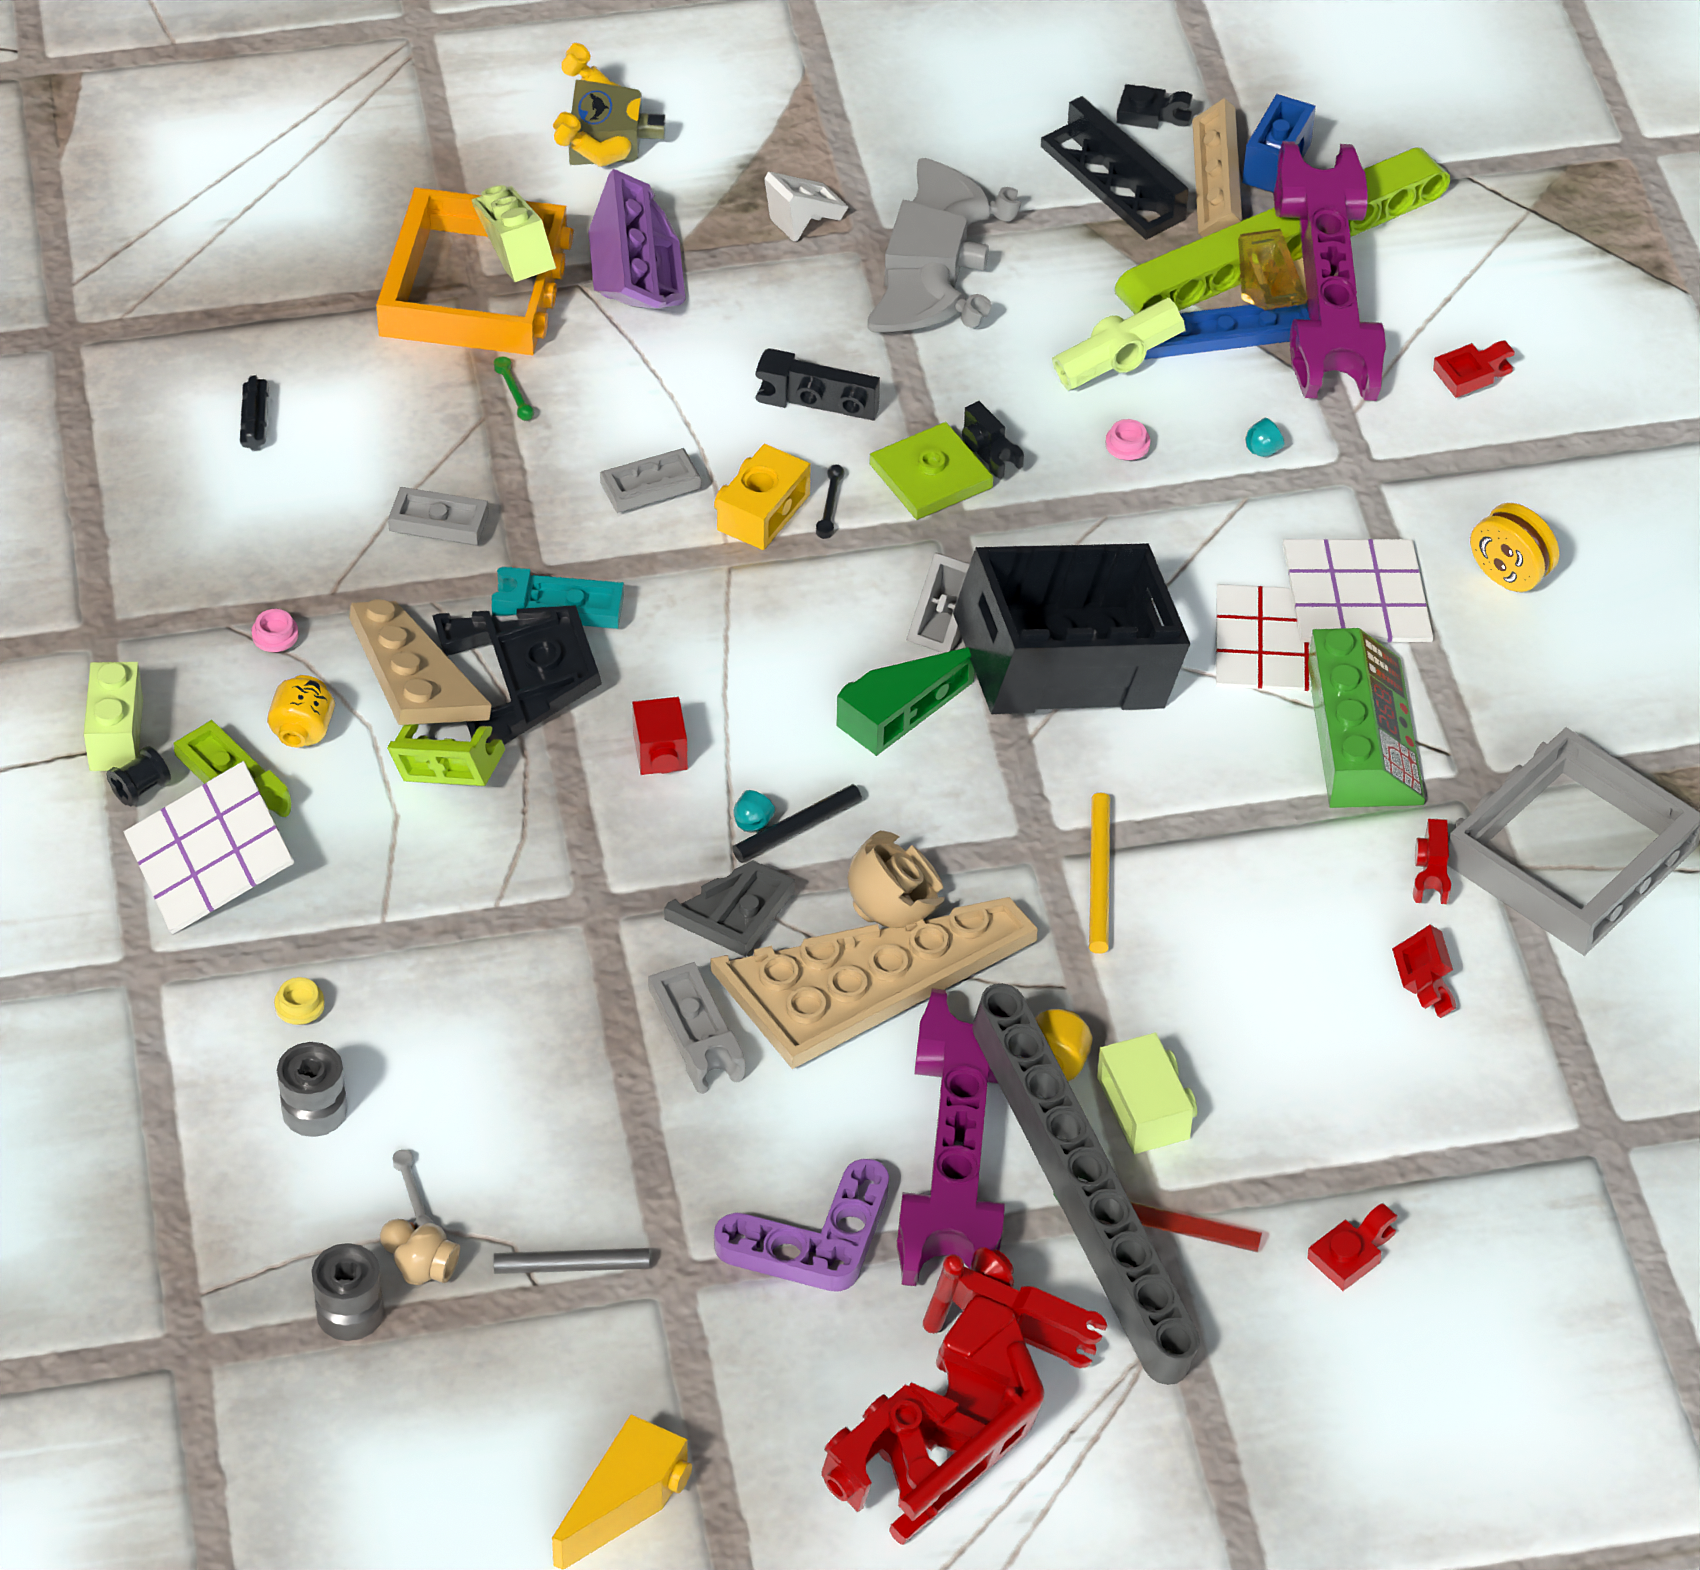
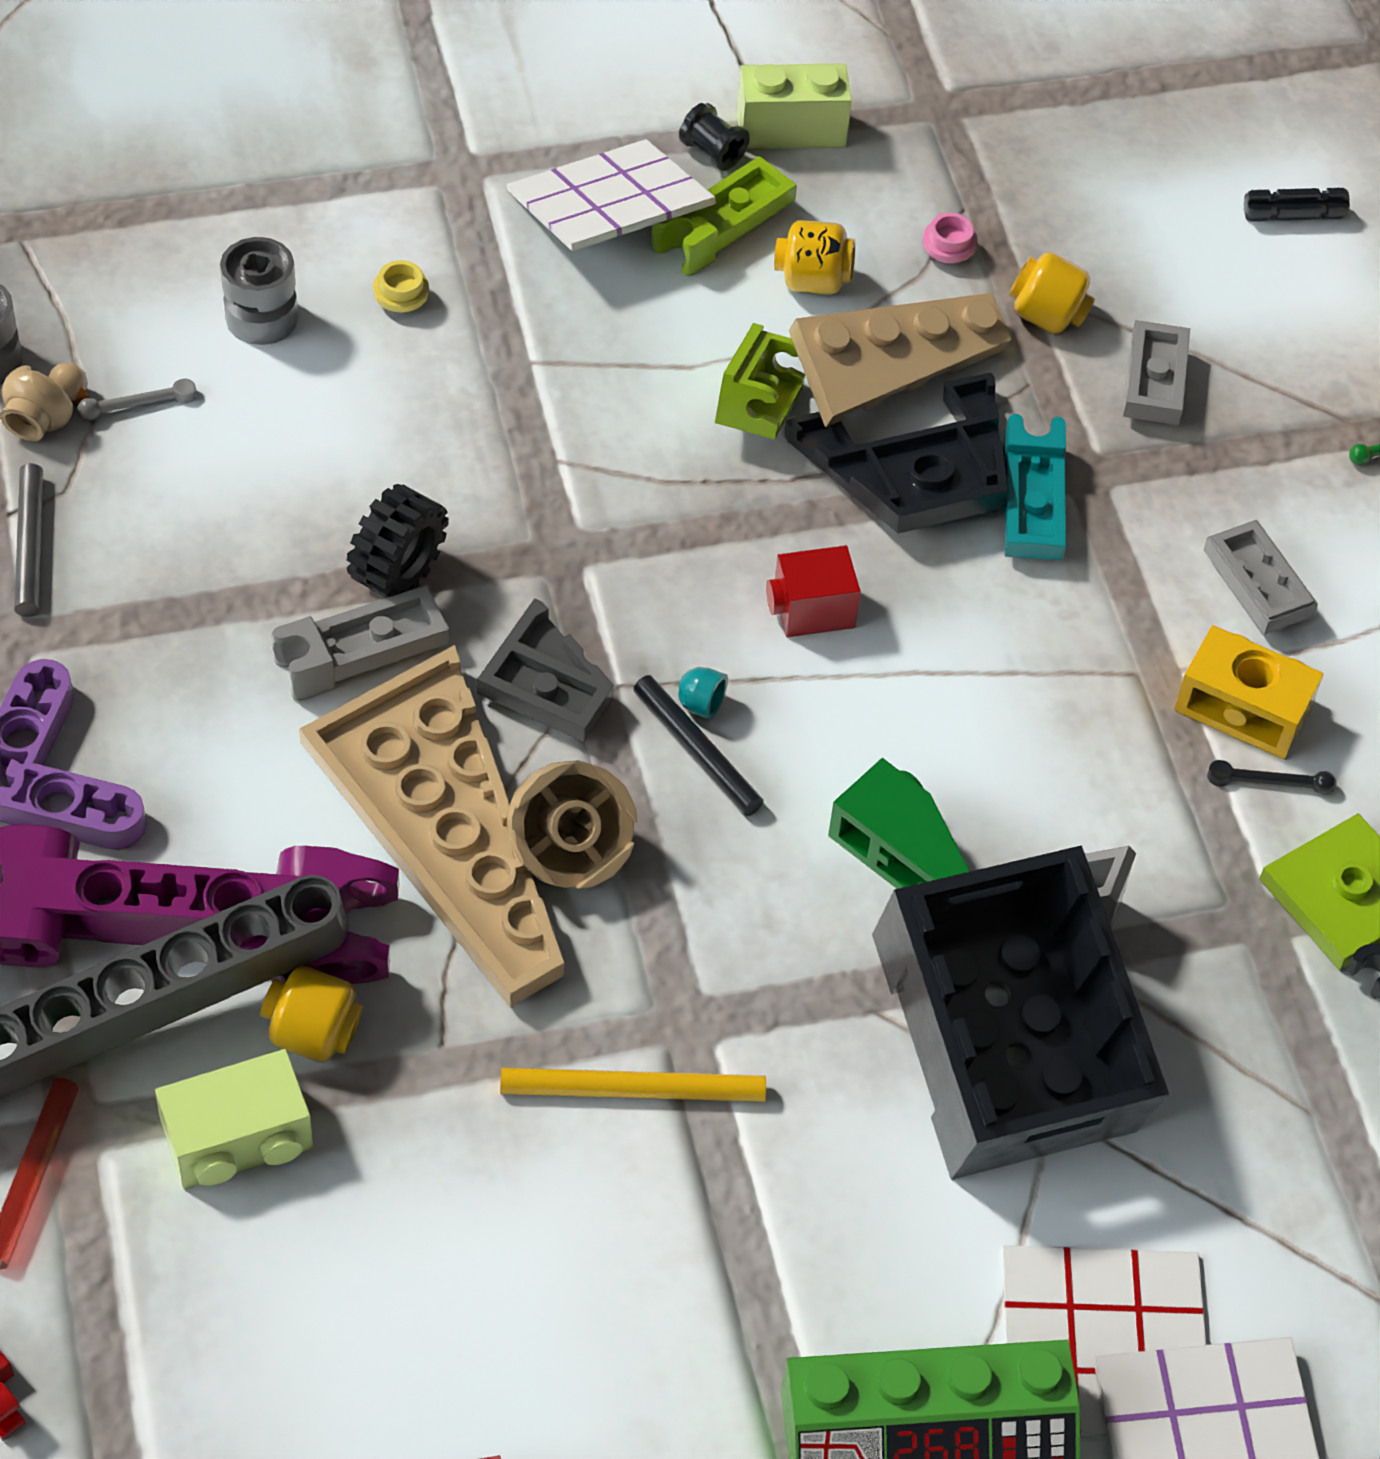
camera: 85 degrees right, 5 degrees up
(351, 567) = (1052, 293): none -> yellow head
(614, 984) = (397, 541): none -> black tyre

